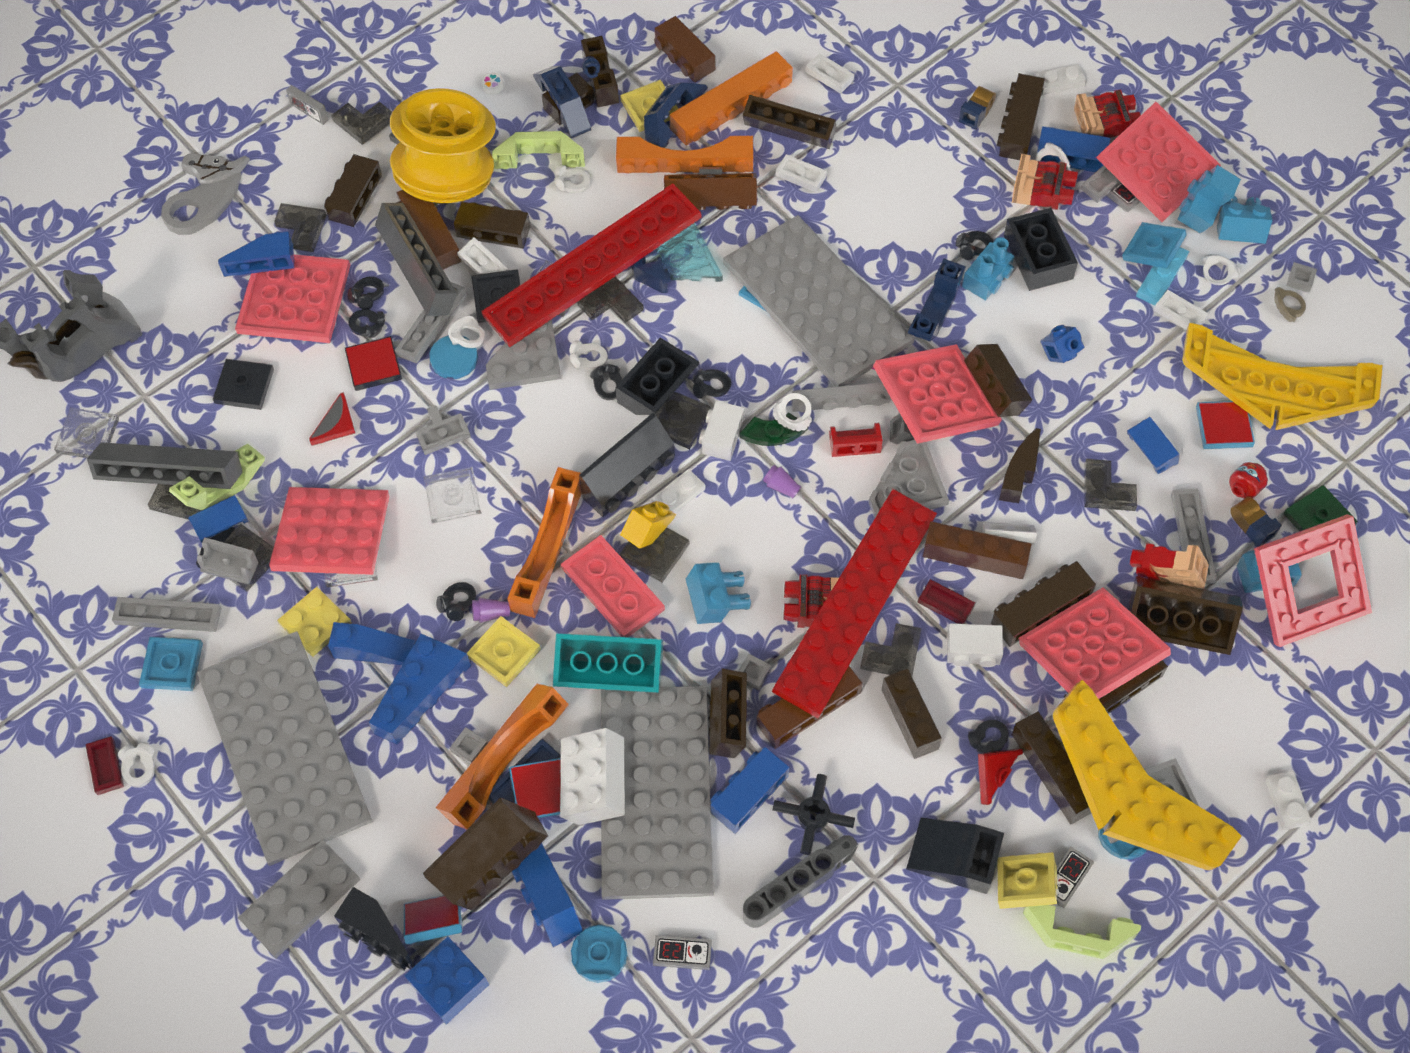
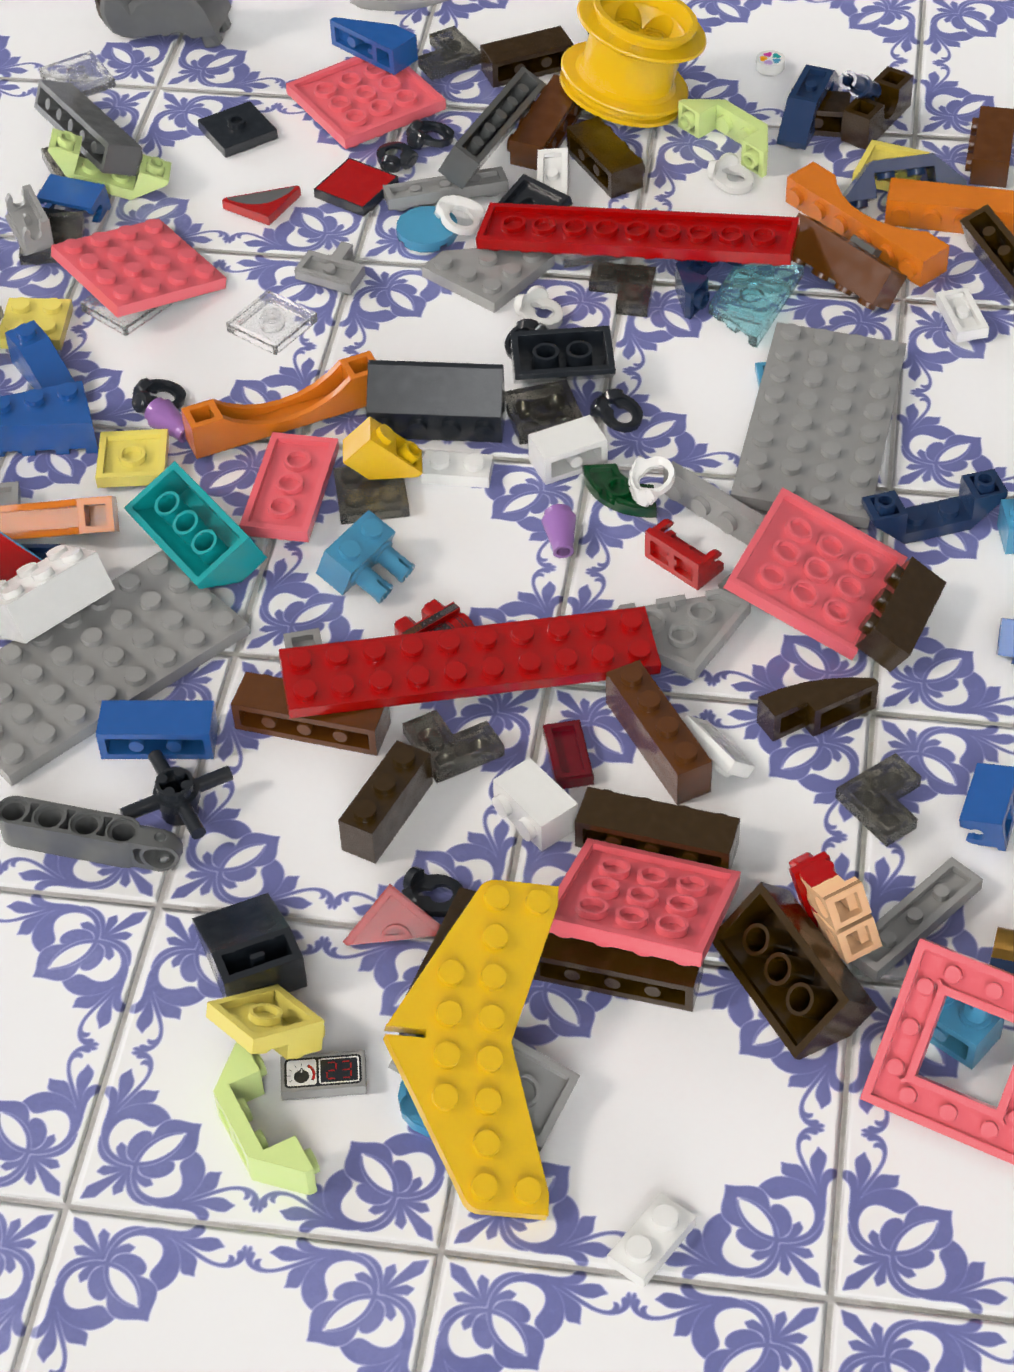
camera: 50 degrees right, 15 degrees down
(728, 713) = (227, 652): dark brown brick -> none

